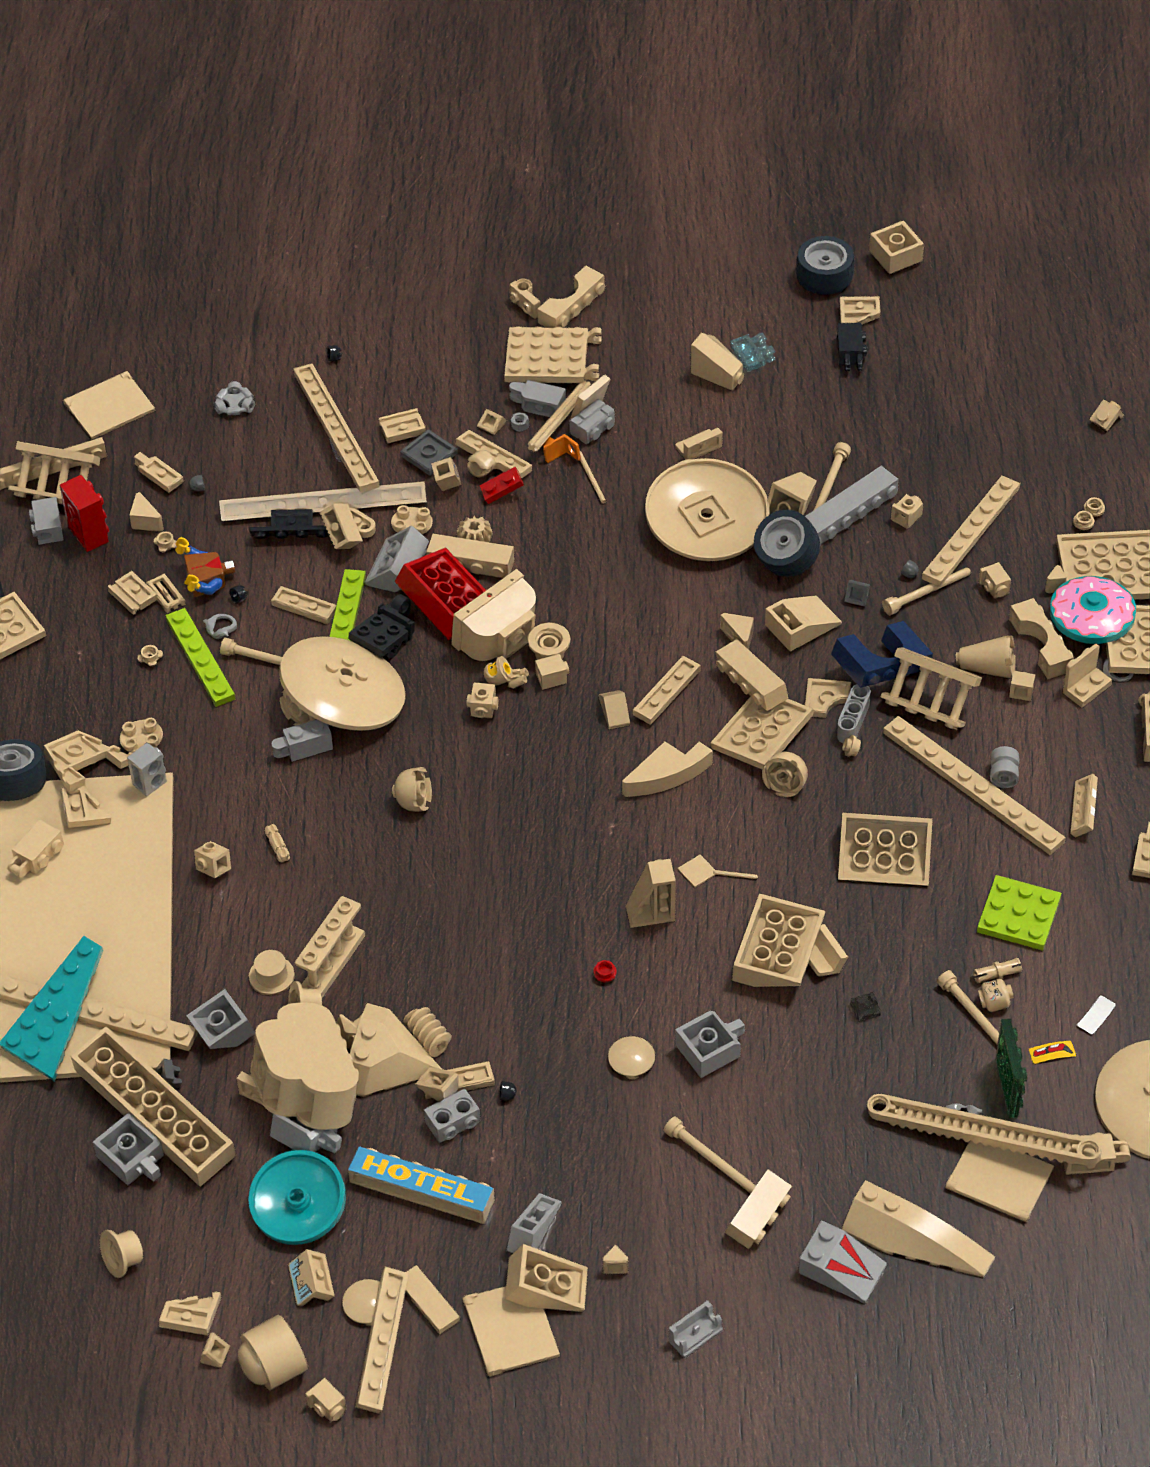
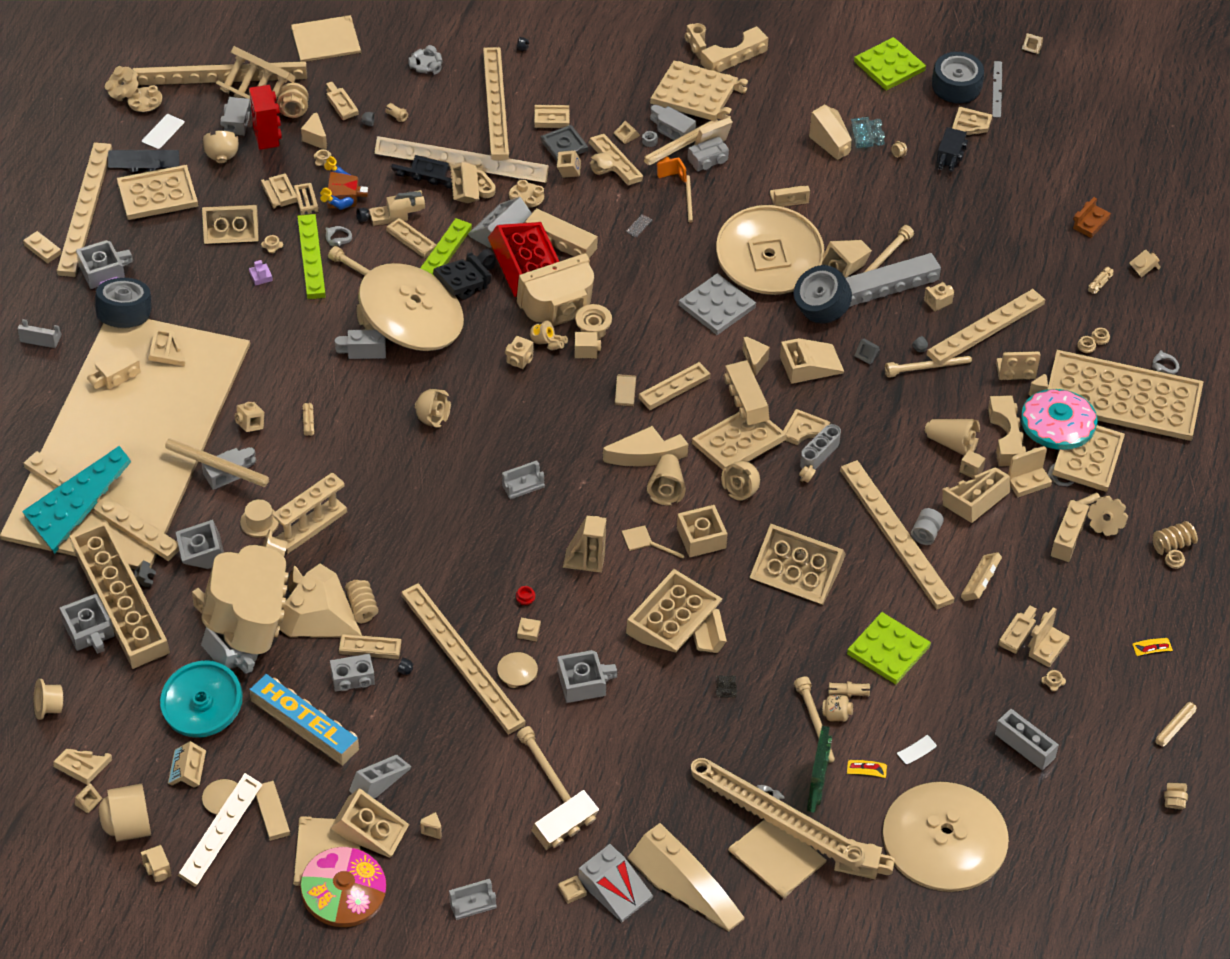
camera: 15 degrees right, 0 degrees up
(45, 560) = (220, 146): none -> tan cylinder
(78, 751) = (181, 303): tan wing -> none
(93, 645) = (230, 224): none -> tan slope
(107, 483) = (293, 100): none -> tan piece
(140, 732) = (237, 304): tan dish -> none
(147, 769) = (227, 331): light grey brick -> none
(151, 692) = (260, 273): none -> lavender tile
(200, 922) = (217, 462): none -> tan axle
(210, 923) = (219, 478): none -> light grey hinge
(232, 469) = (399, 114): none -> tan pin
(276, 575) = (397, 207): none -> tan plate
(438, 1083) = (351, 643): tan slope -> none
(475, 529) = (574, 215): tan gear -> none
(501, 485) = (611, 185): red plate -> none
(546, 1361) = (343, 887): none -> dish
(547, 842) = (523, 480): none -> light grey hinge
(549, 522) = (639, 225): none -> clear window
(568, 1062) = (463, 659): none -> tan plate
(624, 1008) = (528, 629): none -> tan plate
(672, 585) = (717, 304): none -> light grey plate
(706, 798) = (667, 481): none -> tan cone
(743, 269) = (889, 63): none -> lime plate
(768, 842) = (701, 530): none -> tan brick
(795, 361) = (899, 149): none -> tan plate
(797, 1284) = (572, 889): none -> tan tile
(867, 263) = (996, 87): none -> light grey piece
(869, 668) = (845, 414): dark blue arch -> none
(886, 207) = (1032, 43): none -> tan slope
(896, 247) = (1025, 78): tan brick -> none
(946, 673) = (907, 435): tan fence -> none
(995, 580) = (987, 372): tan brick -> none
(1026, 562) = (1018, 365): none -> tan bracket
(1029, 382) = (1090, 218): none -> dark orange bracket
(1043, 717) = (978, 495): none -> tan wedge
(1067, 446) = (1100, 280): none -> tan axle

